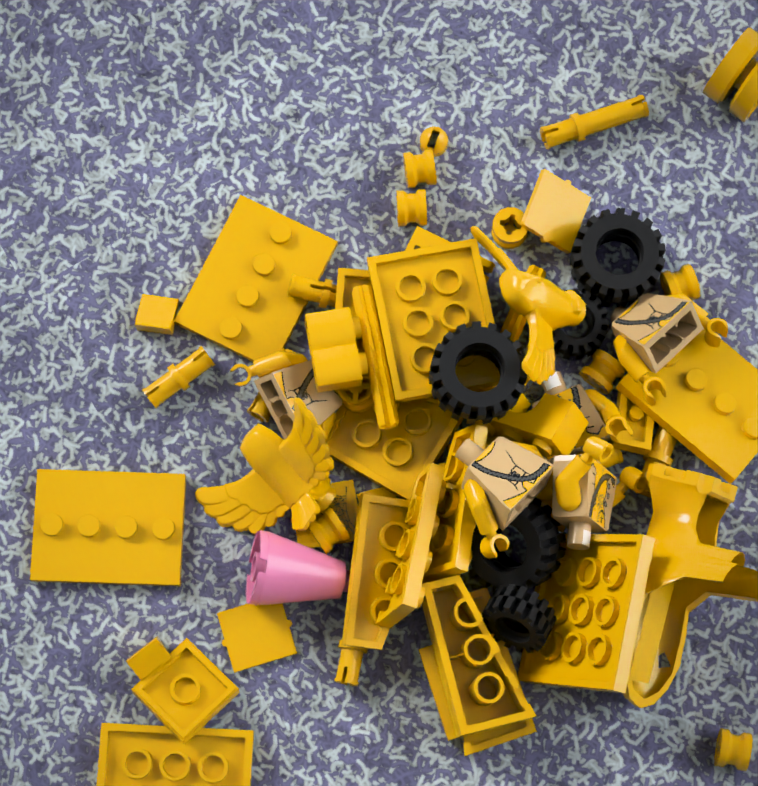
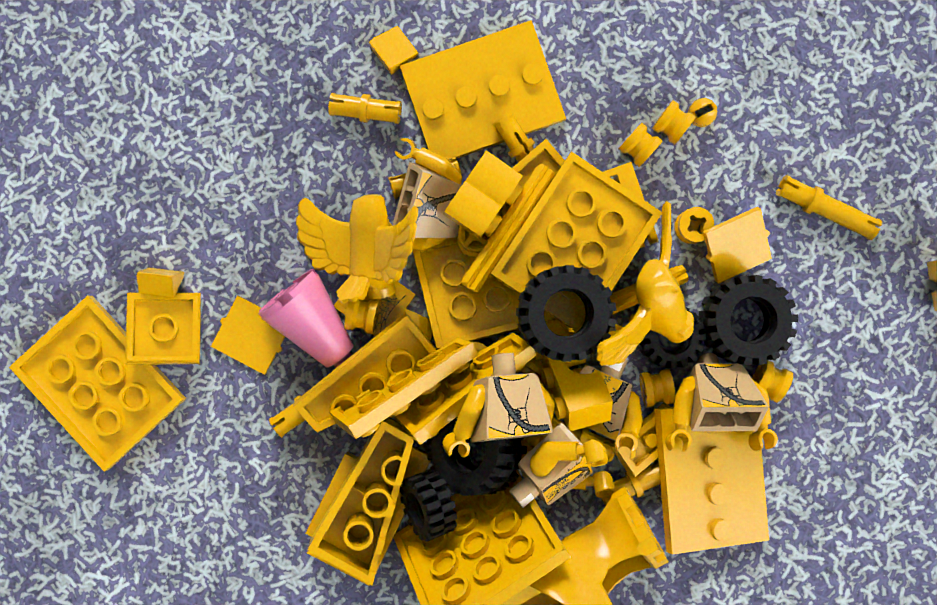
camera: 40 degrees right, 10 degrees up
(108, 527) = (219, 166): yellow plate -> none

